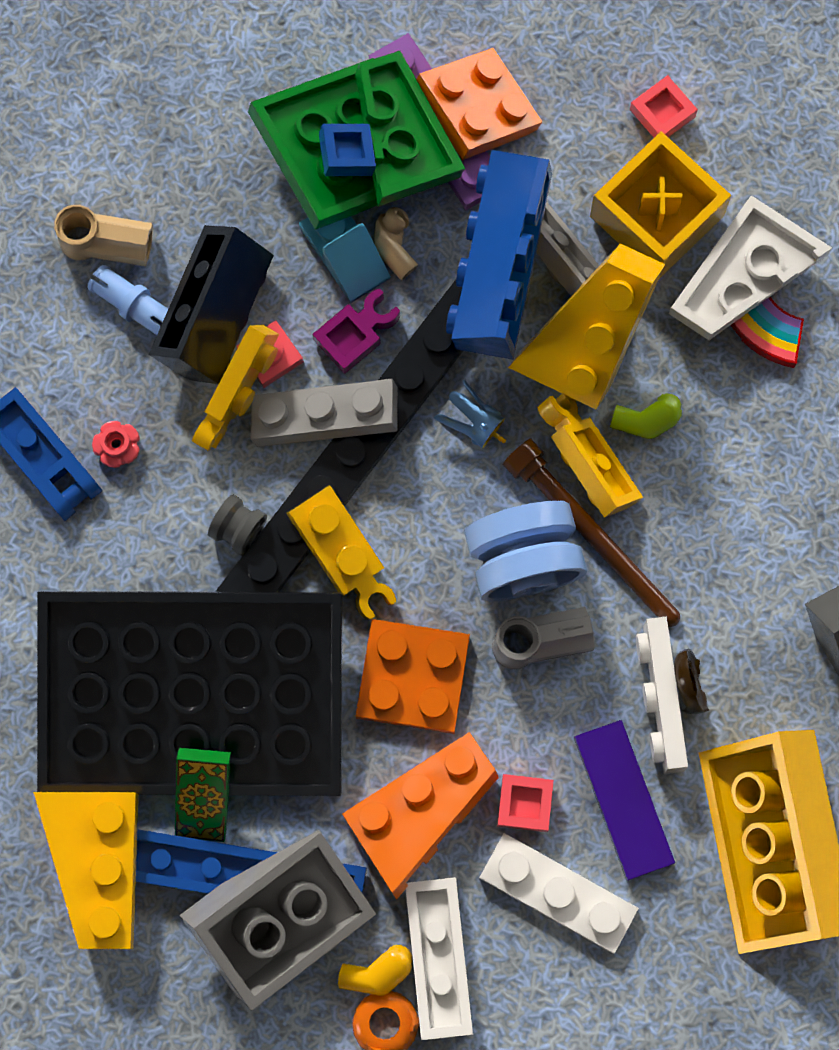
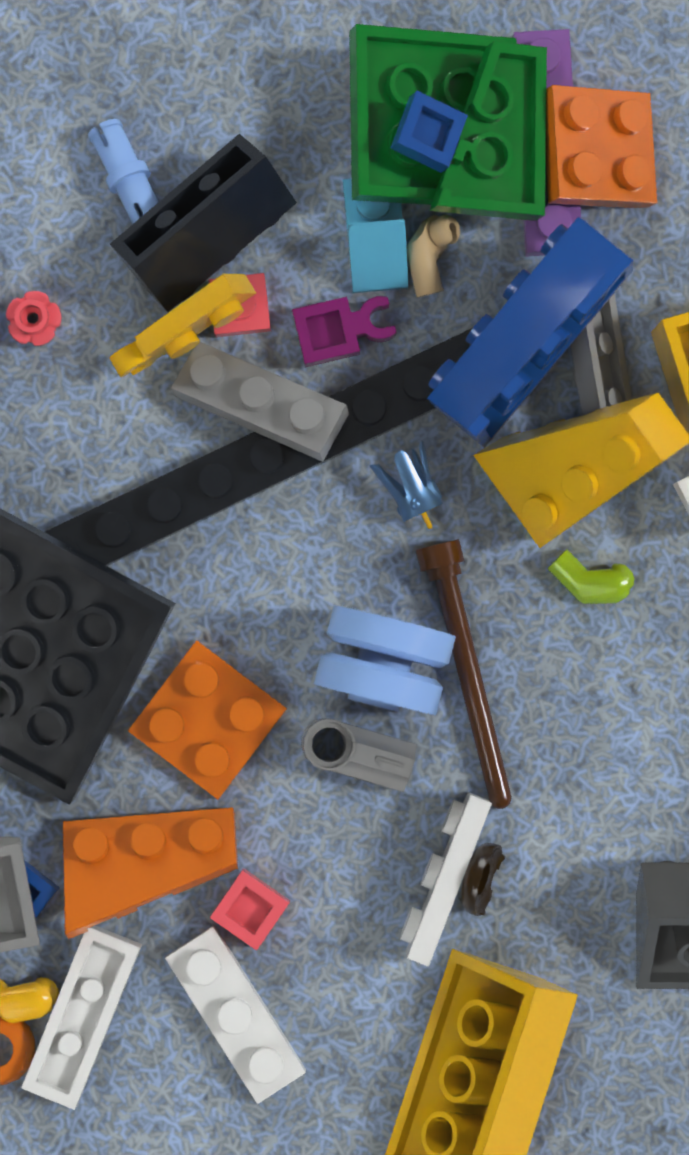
camera: 25 degrees right, 10 degrees up
(108, 236) = (135, 90): tan piece -> none
(236, 524) = (110, 470): dark grey wheel -> none
(340, 548) = (201, 551): yellow plate -> none
(589, 456) = (507, 591): yellow plate -> none
(624, 800) = (351, 957): dark purple tile -> none

